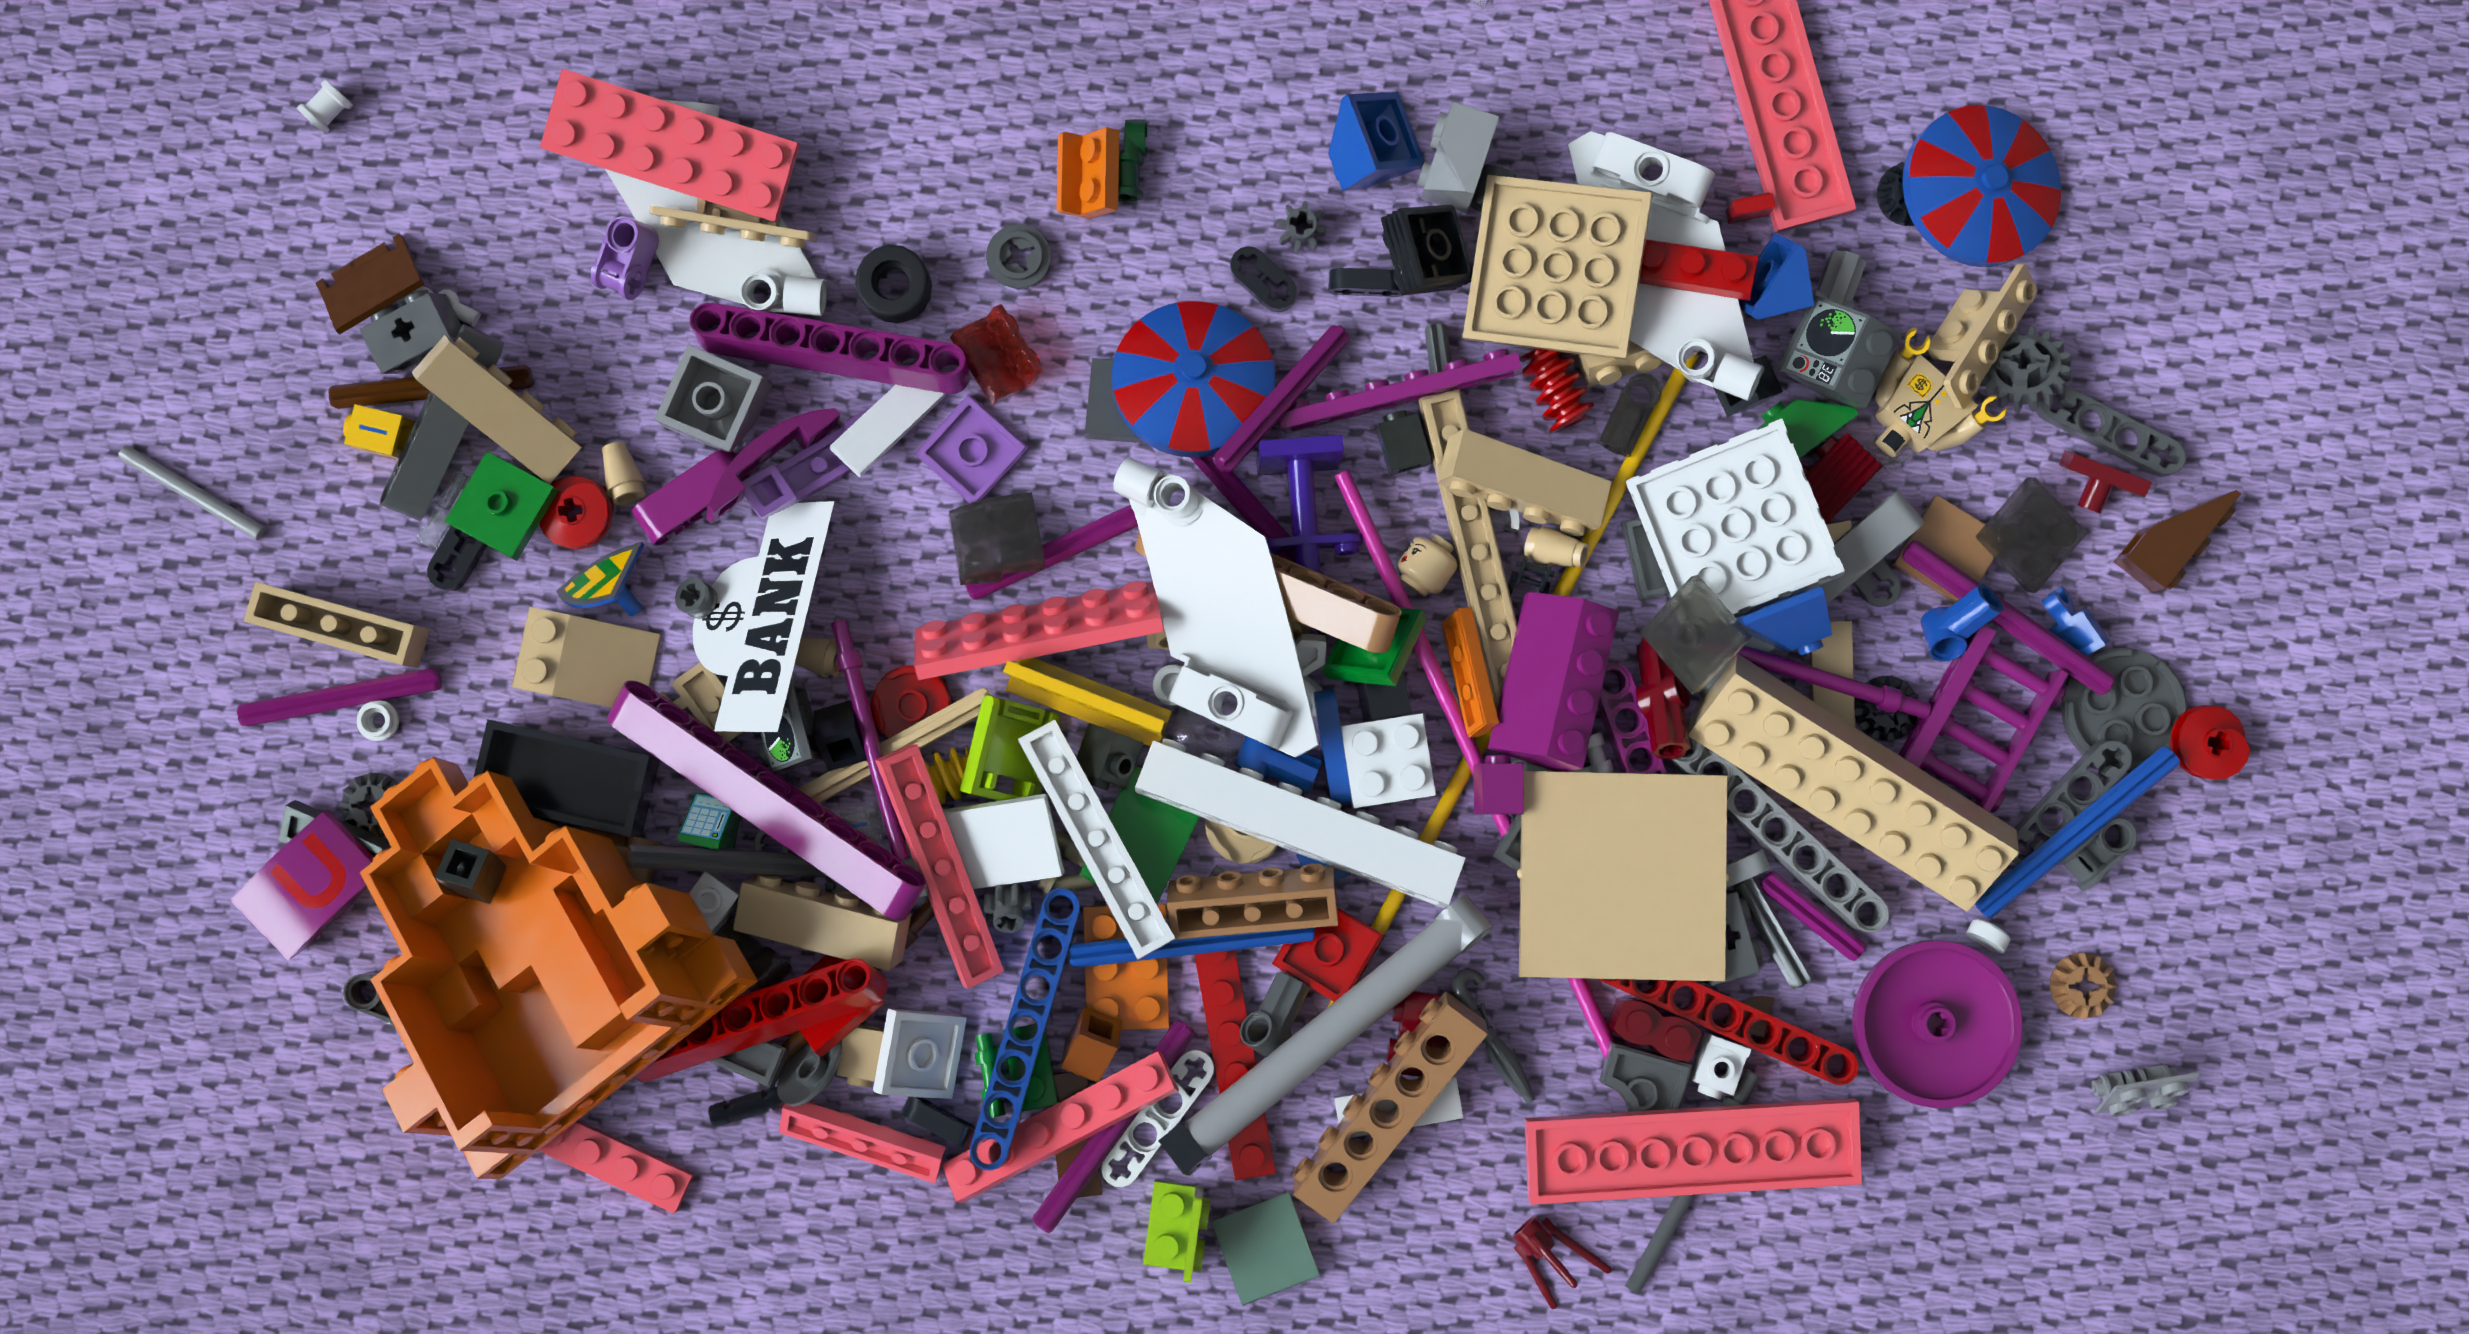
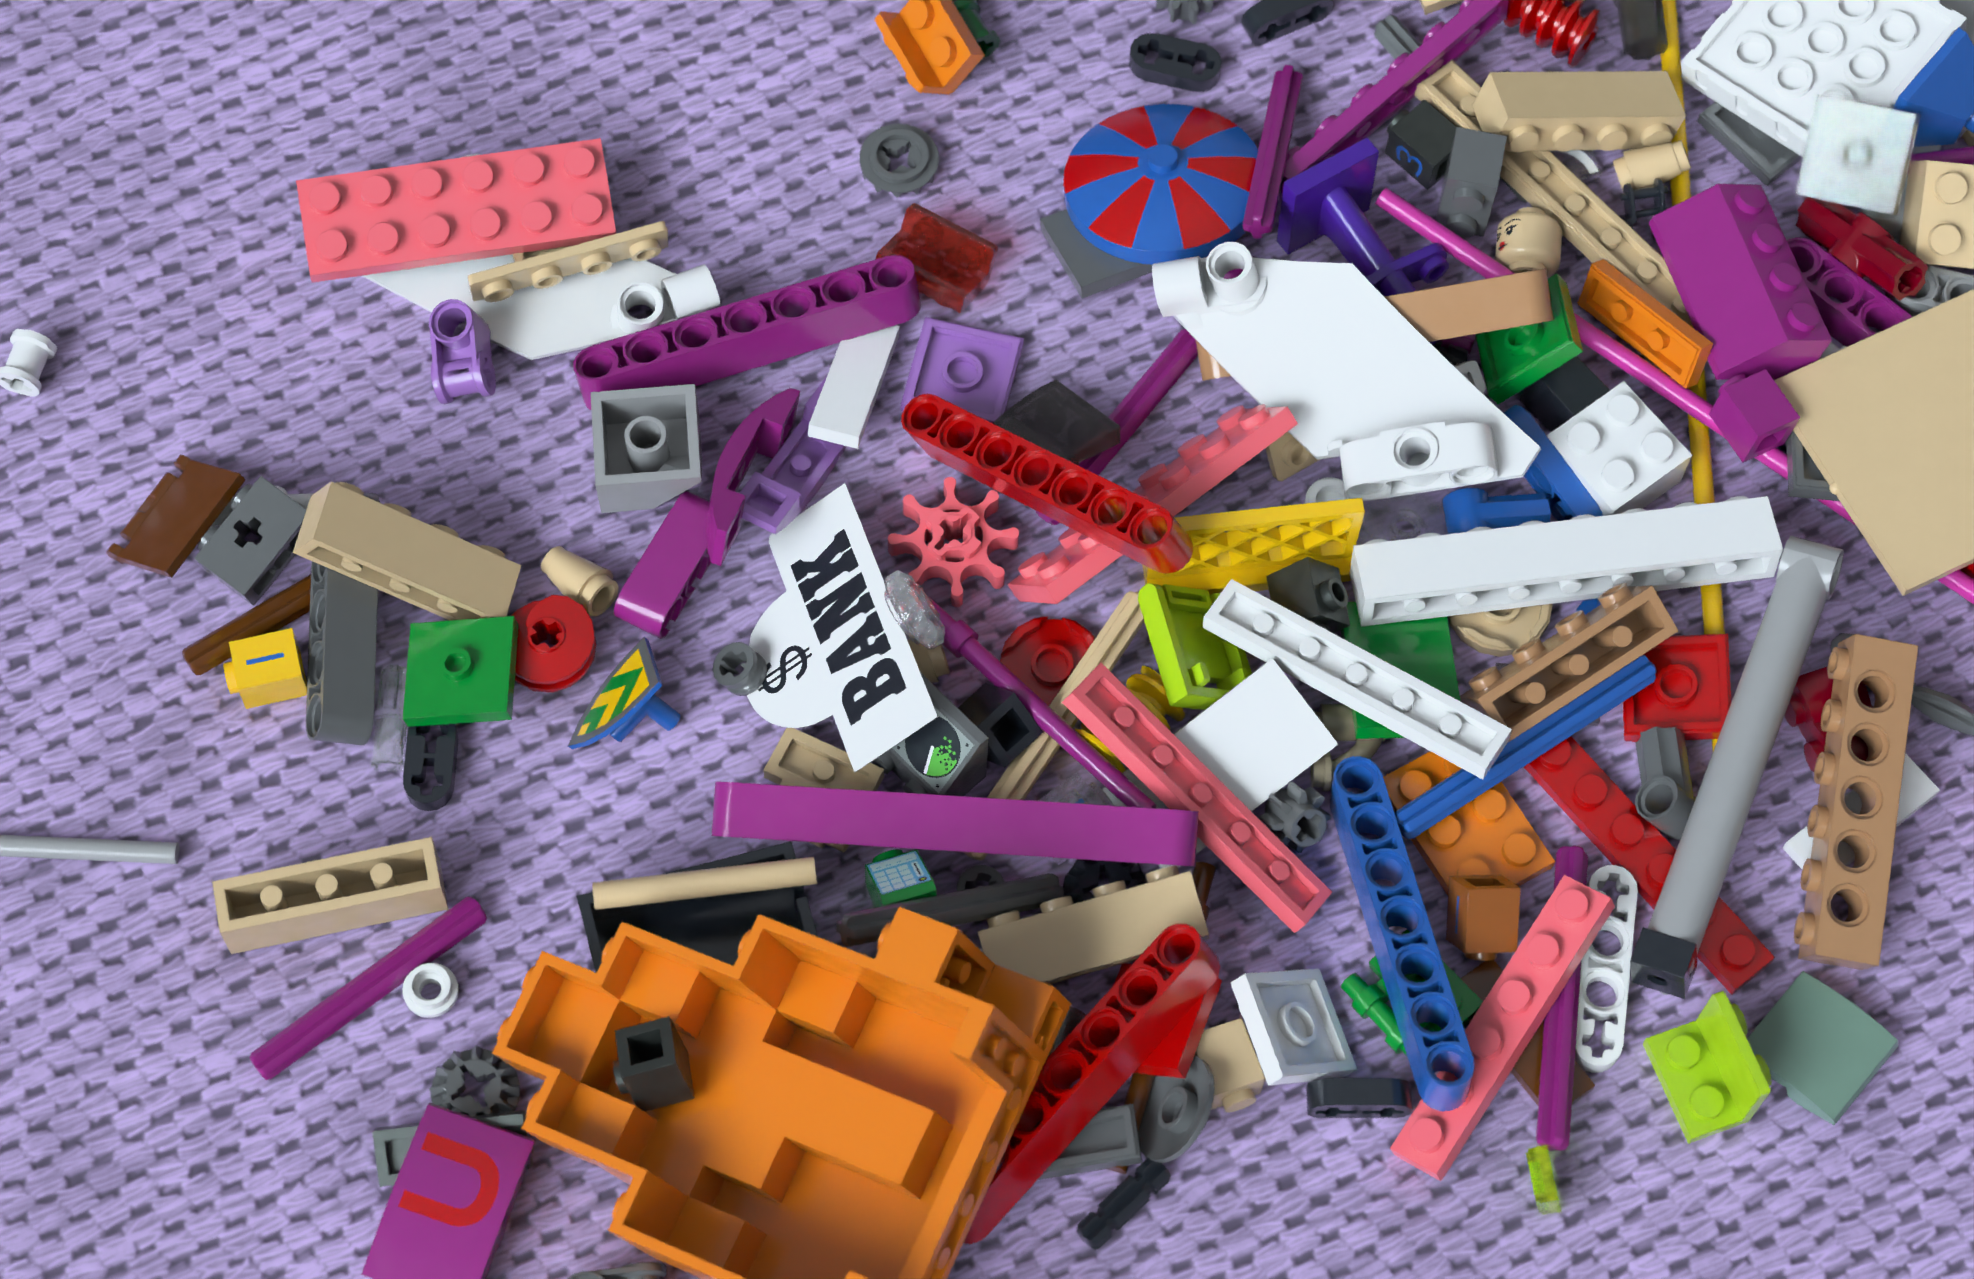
camera: 30 degrees left, 20 degrees down
(572, 758) = (704, 883): none -> tan piece
(582, 657) = (642, 795): tan slope -> none
(815, 634) = (913, 610): none -> clear gear
(863, 1140) = (1282, 1166): coral plate -> none
(884, 562) = (952, 522): none -> coral gear
(889, 258) = (778, 216): black tyre -> none
(938, 531) = (1048, 483): none -> red beam
(1025, 1243) = (1543, 1180): none -> clear neon green tile
(1409, 498) = (1471, 181): none -> dark grey brick

